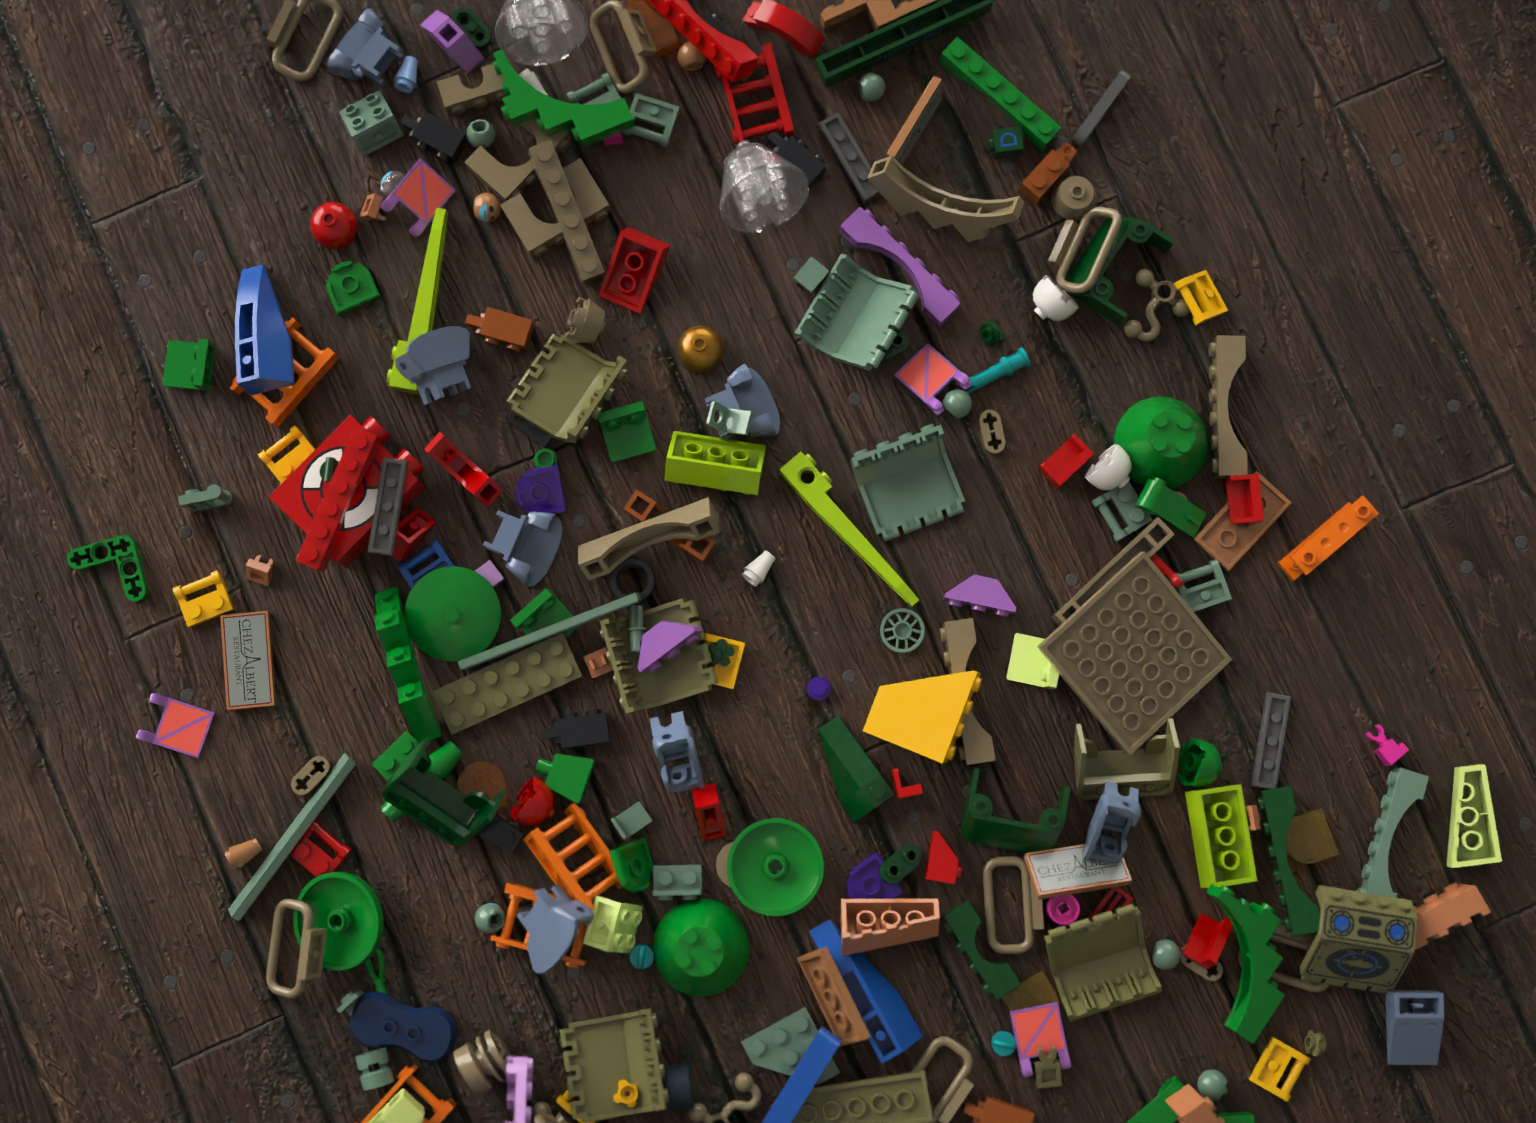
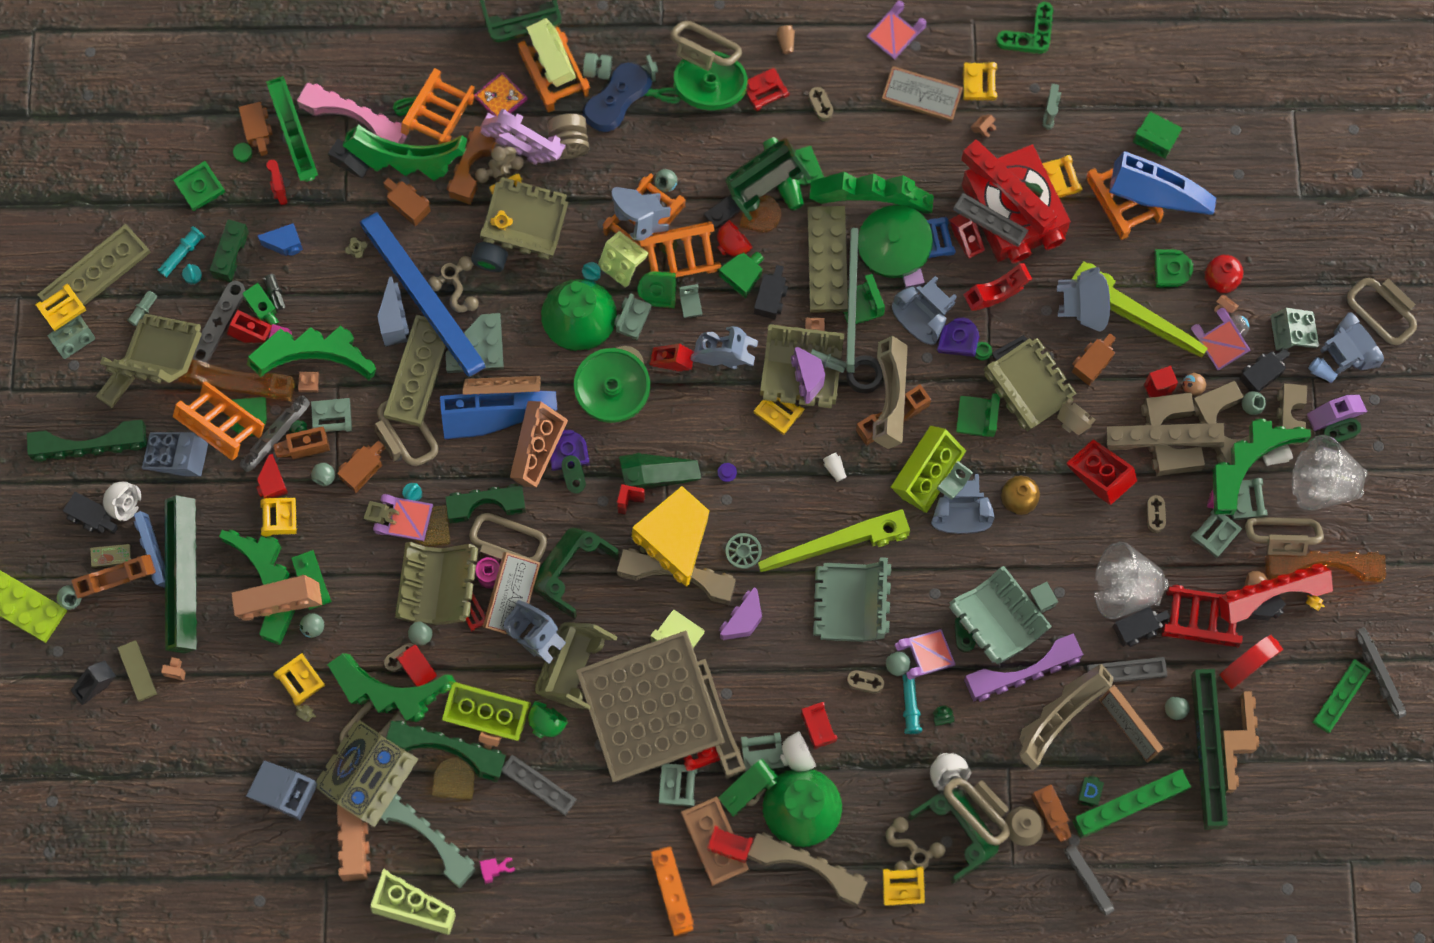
camera: 110 degrees right, 10 degrees down
(291, 837) = (783, 75): sand green tile -> none
(503, 241) = (1161, 382): none -> red panel
(655, 188) = (1161, 514): none -> dark tan beam
(721, 652) = (783, 412): dark green plant -> none
(941, 861) = (562, 504): red slope -> none

